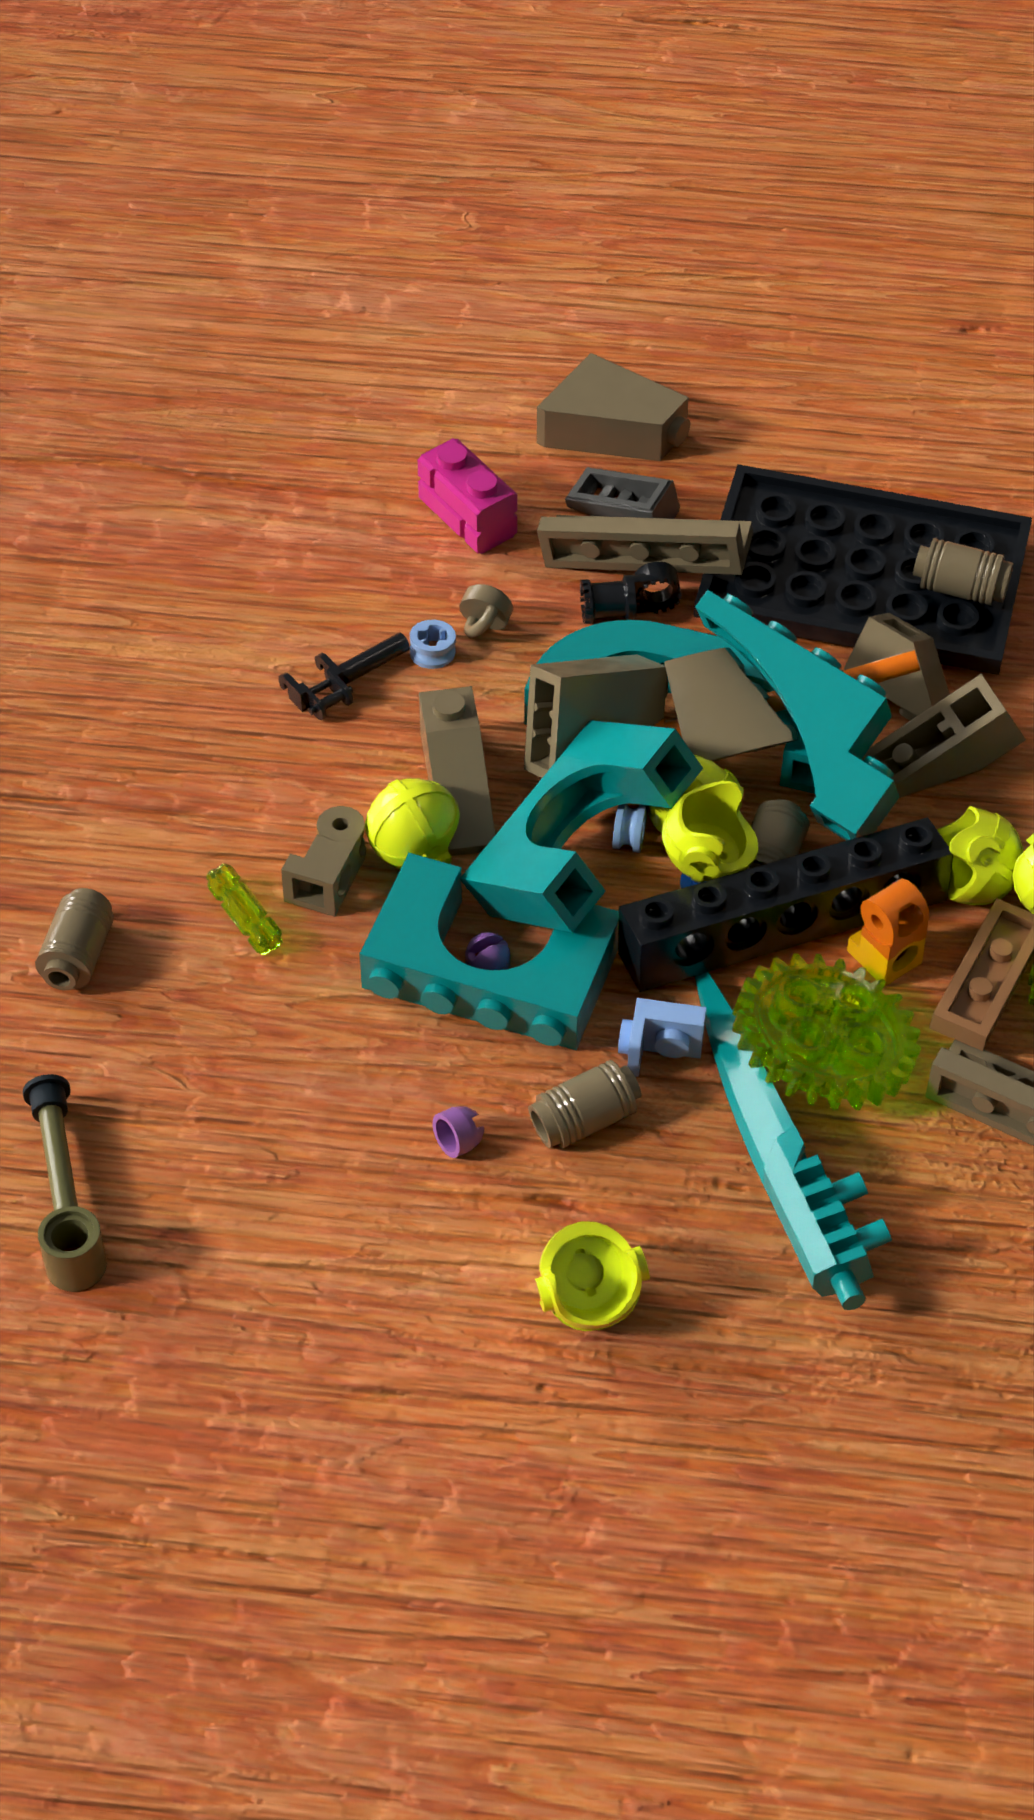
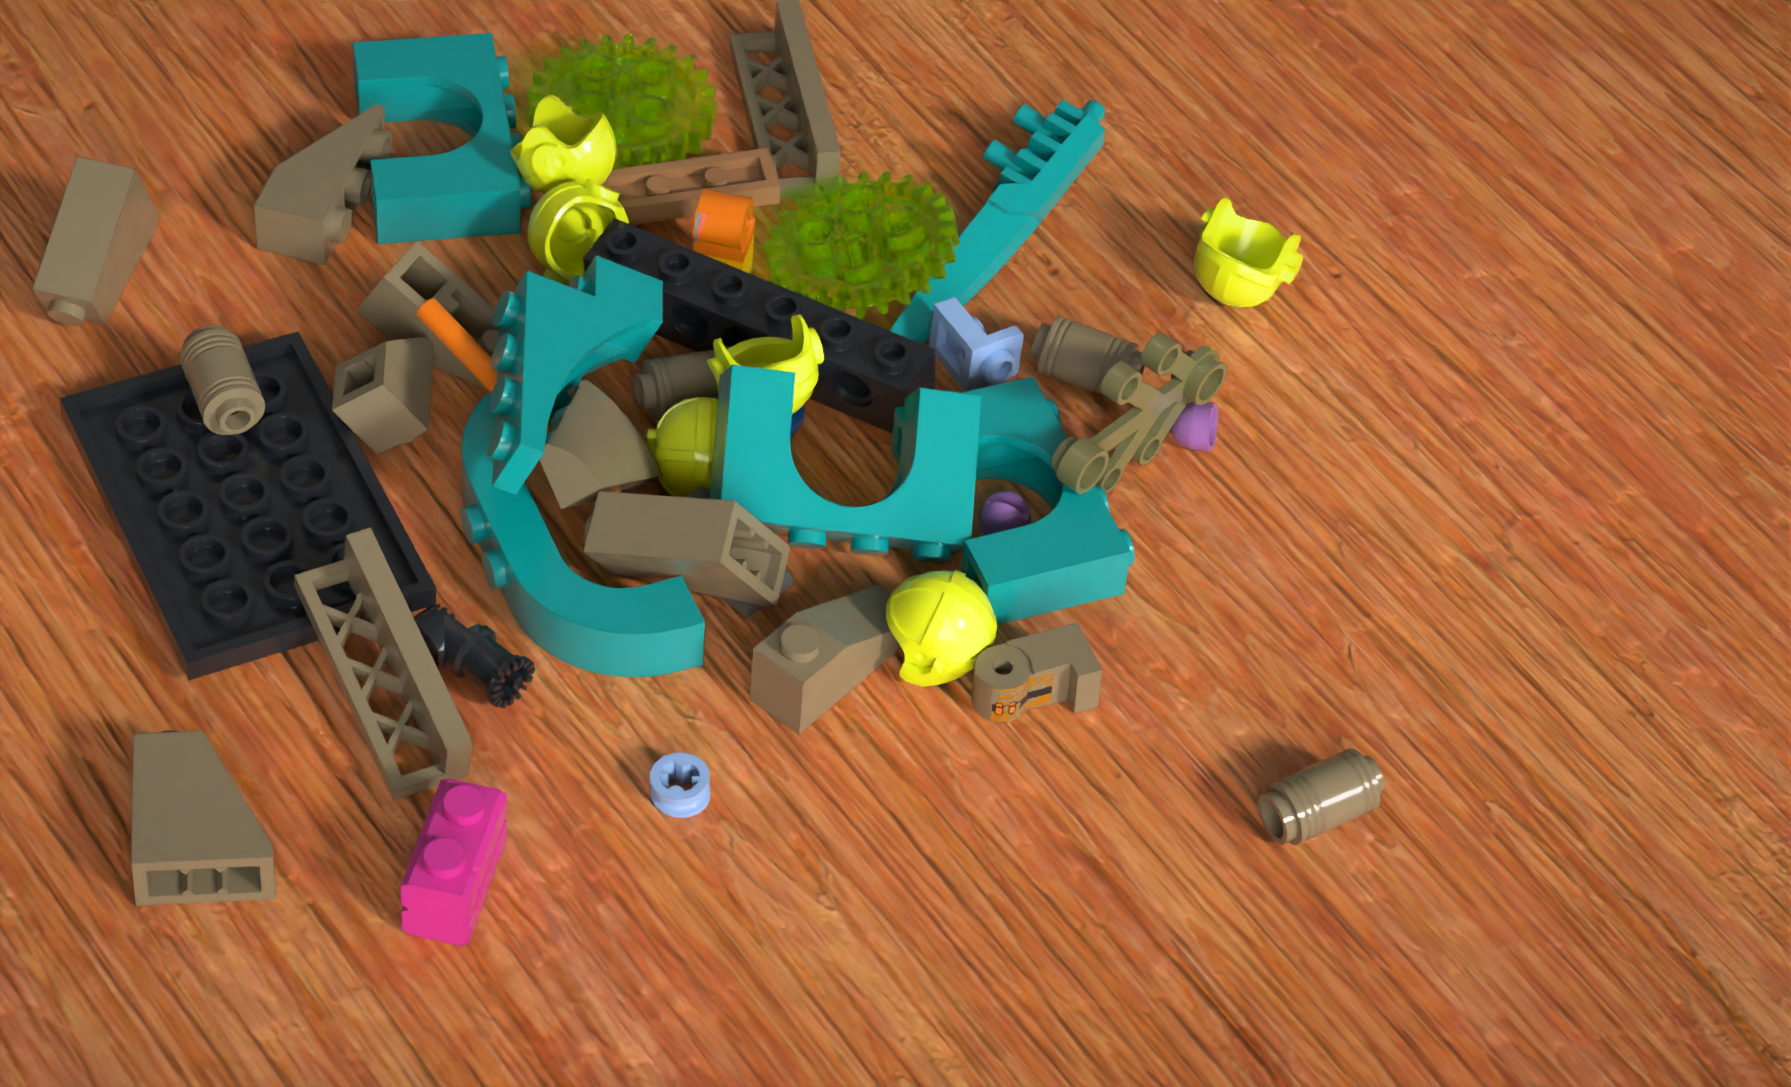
camera: 135 degrees left, 5 degrees down
(68, 1224) = (1574, 594): olive piece -> none
(244, 909) = (1147, 712): clear neon green axle -> none
(339, 676) = (793, 826): black piece -> none
(472, 1096) = (1140, 431): none -> olive plant
(484, 609) = (599, 754): dark tan tile -> none
(637, 497) = (309, 705): dark grey slope -> none

